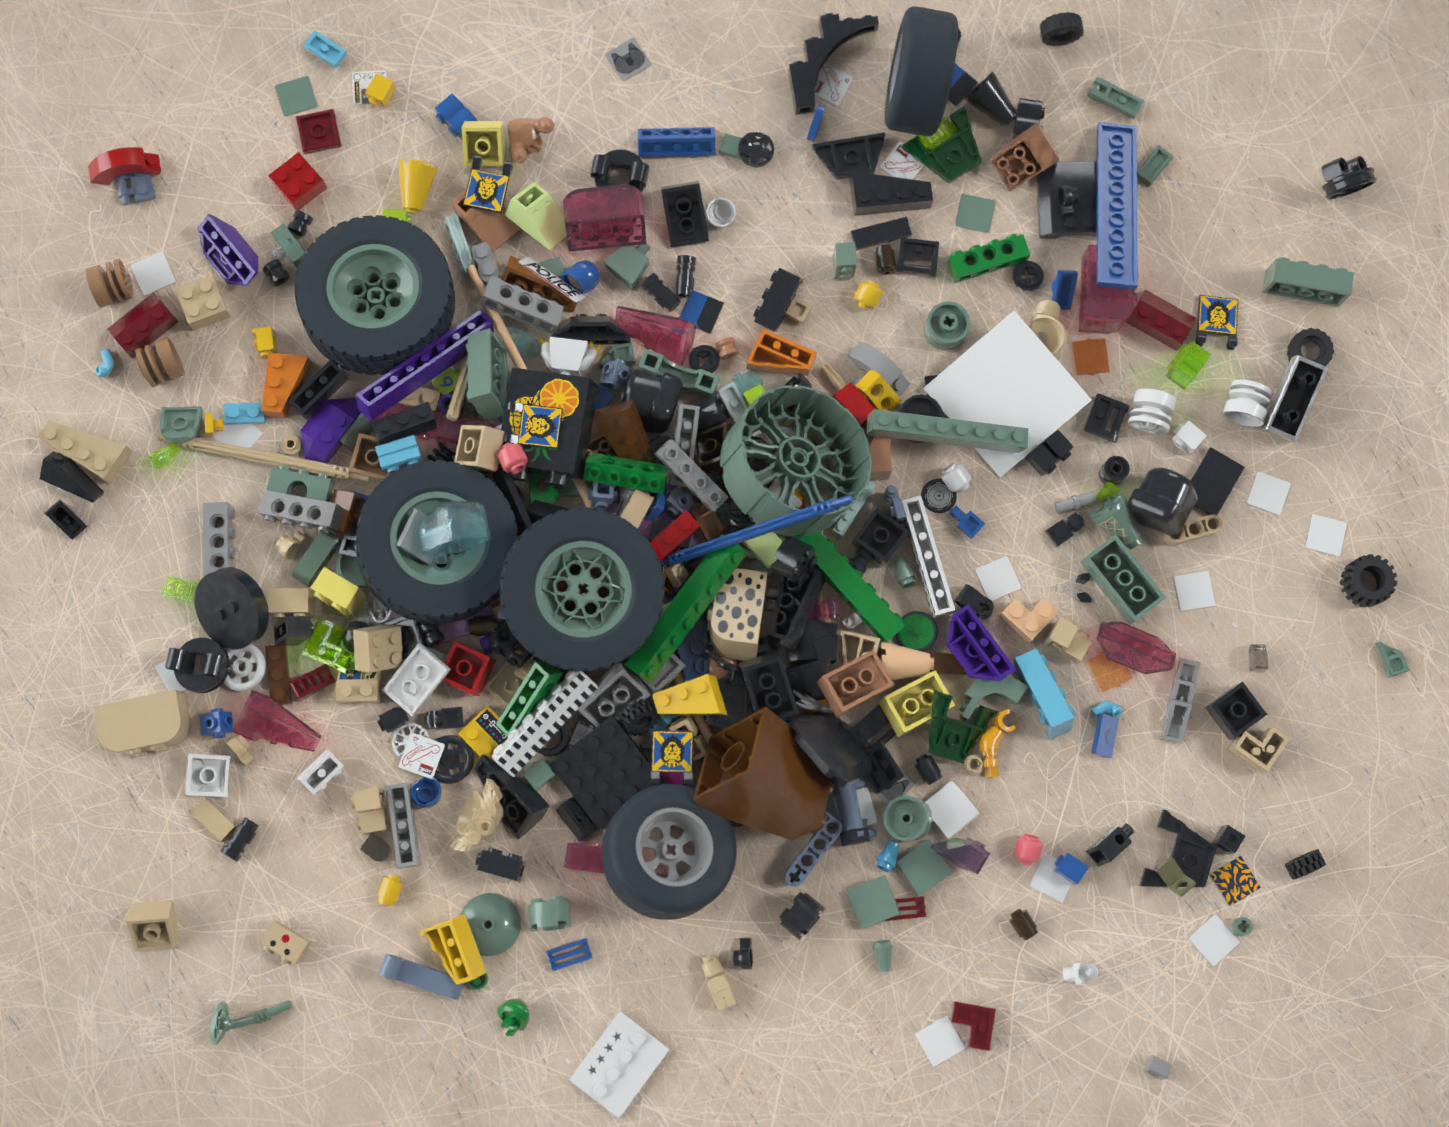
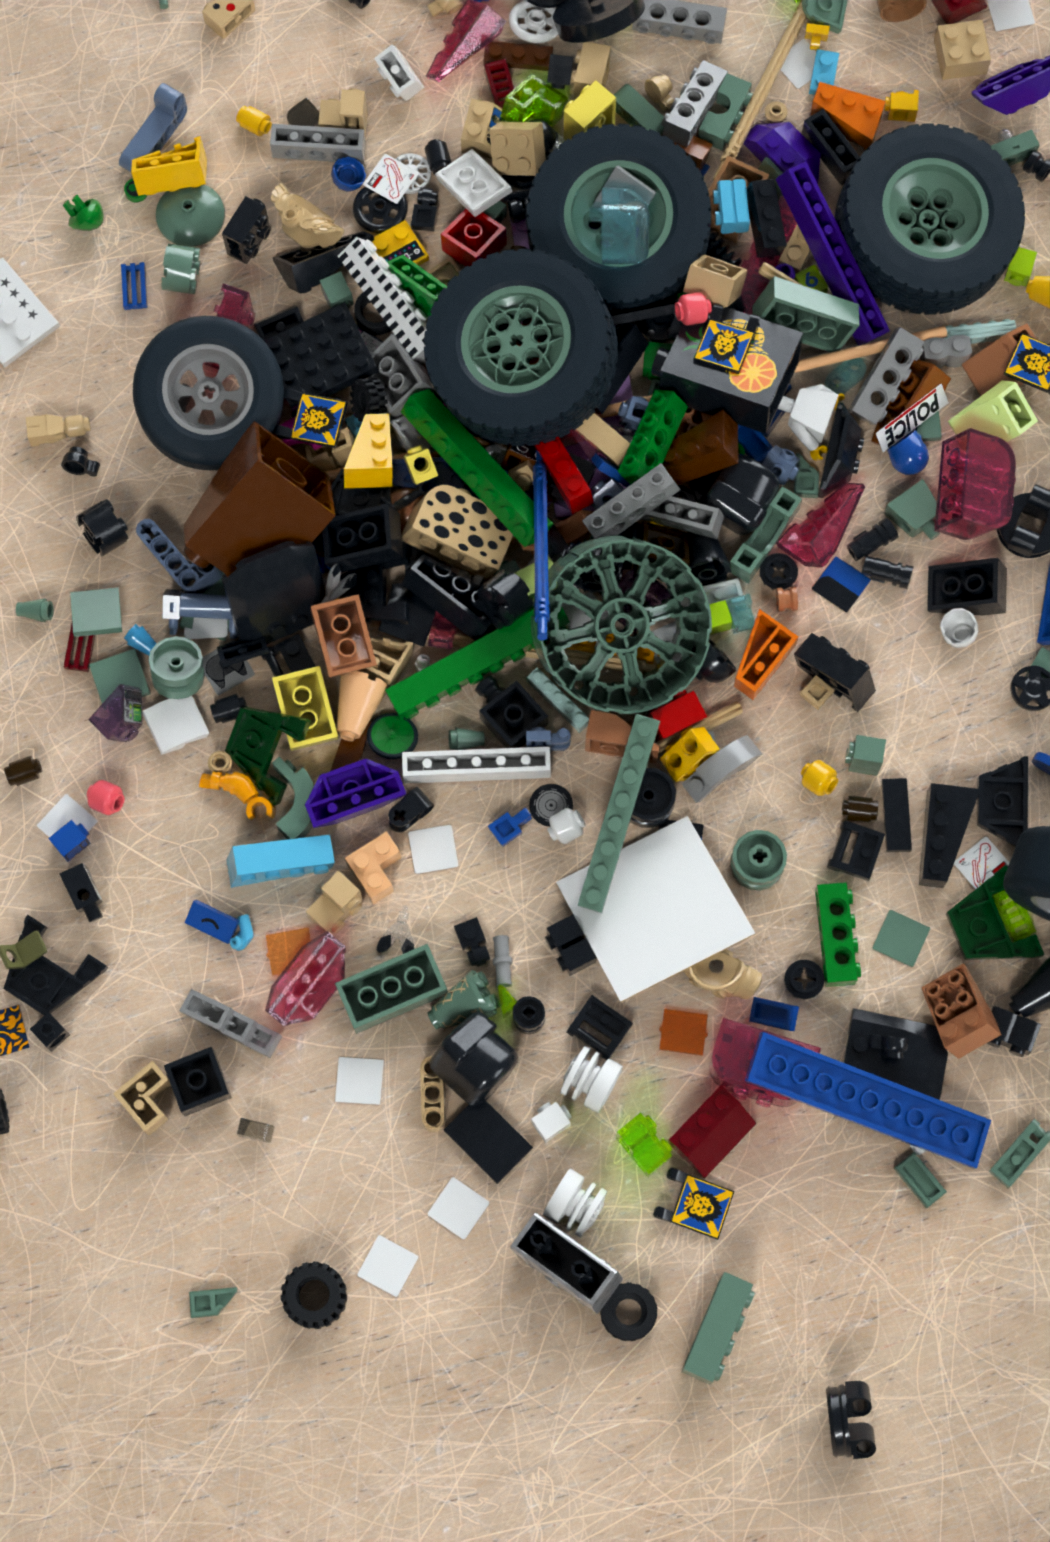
camera: 110 degrees right, 5 degrees down
(276, 273) = (984, 130): black wheel -> none
(697, 651) = (427, 472): none -> light yellow brick

